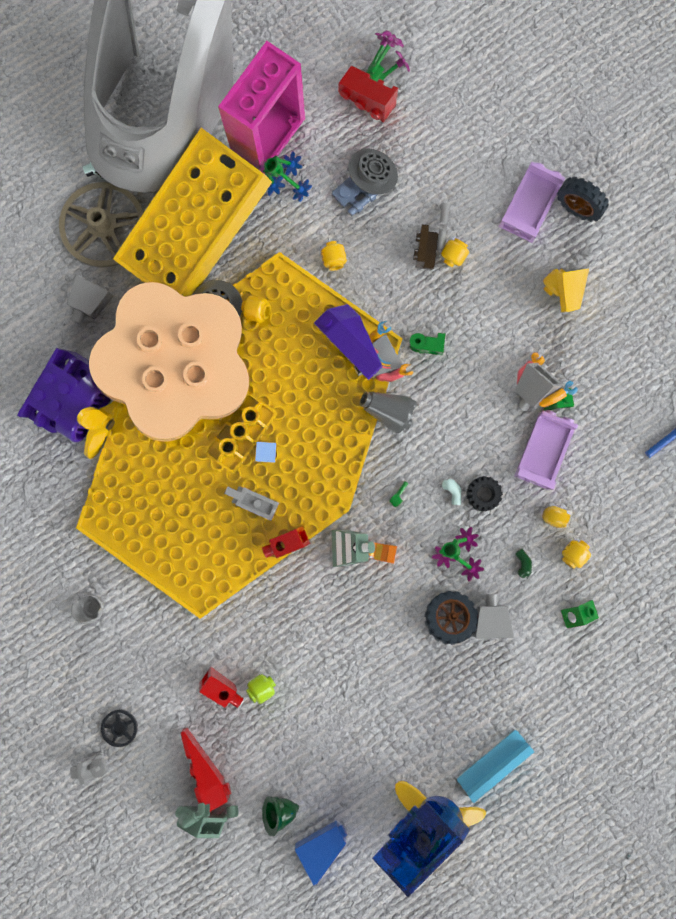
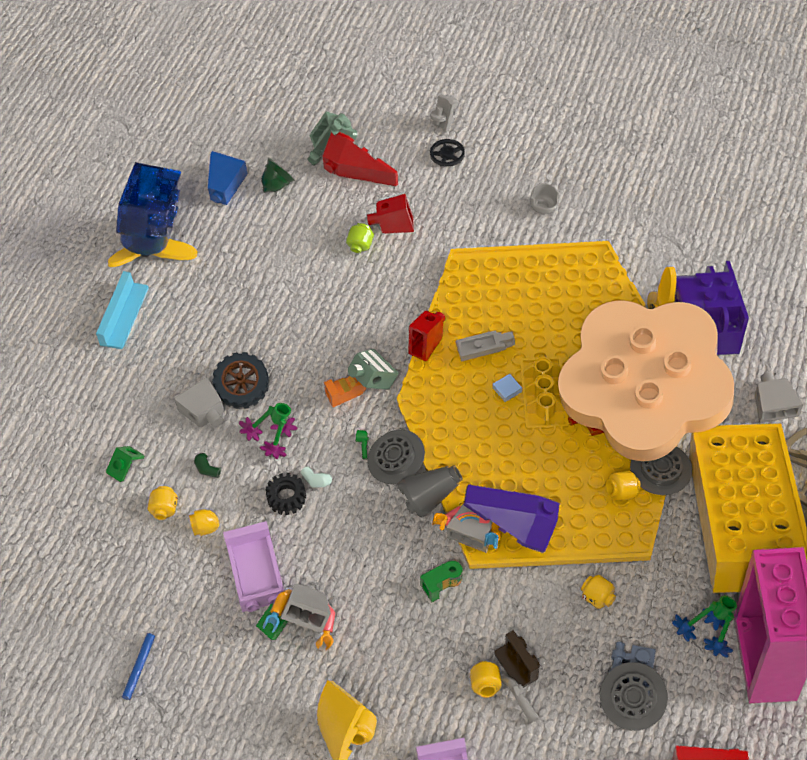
camera: 145 degrees right, 30 degrees down
(386, 462) = (391, 452): none -> dark grey wheel

